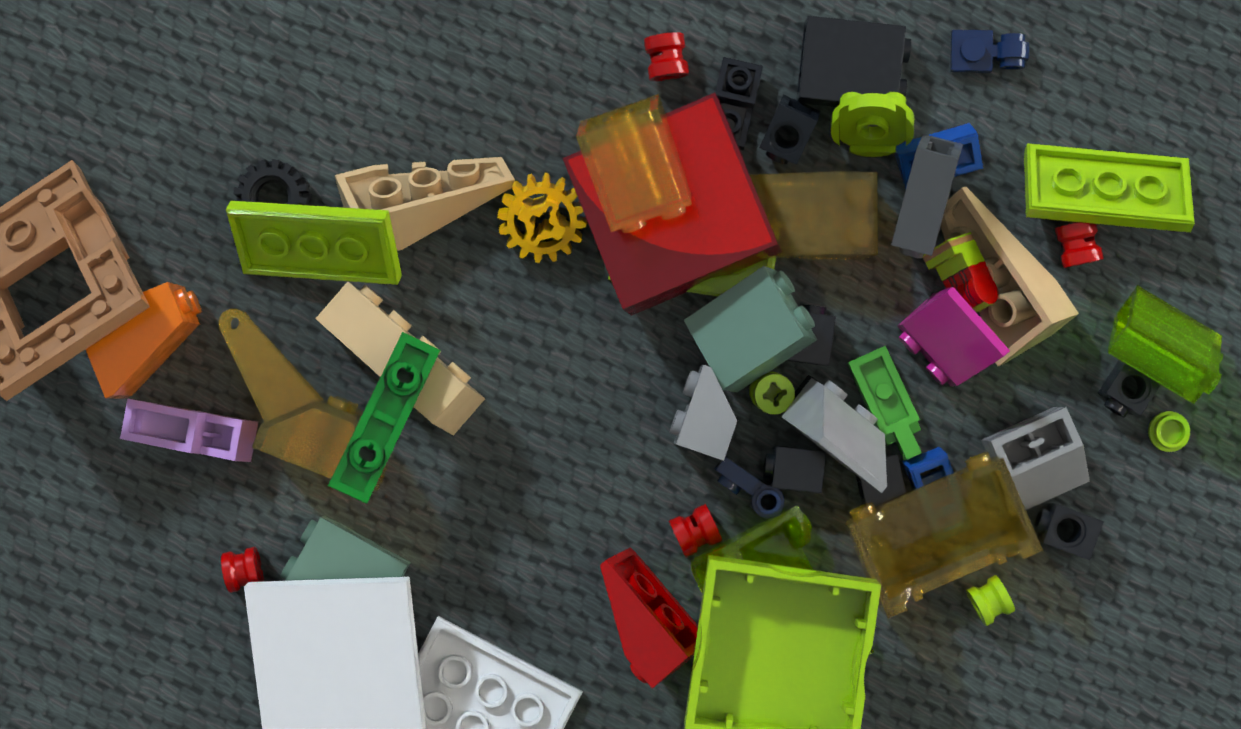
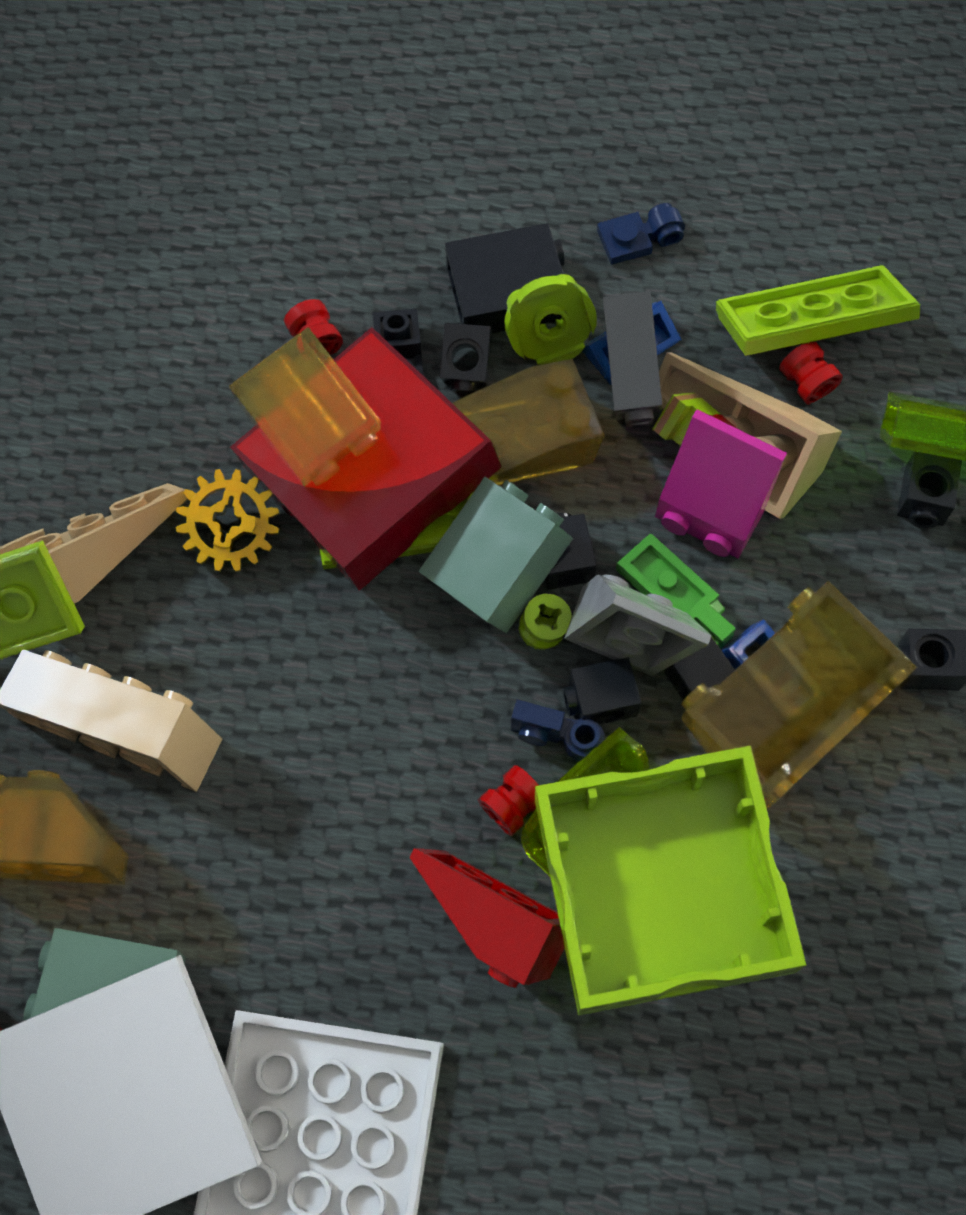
camera: 15 degrees left, 20 degrees down
(384, 418) = (94, 768): green plate -> none
(708, 419) = (482, 665): light grey slope -> none
(990, 600) = (881, 765): lime wheel -> none
(1041, 455) = (876, 579): light grey slope -> none

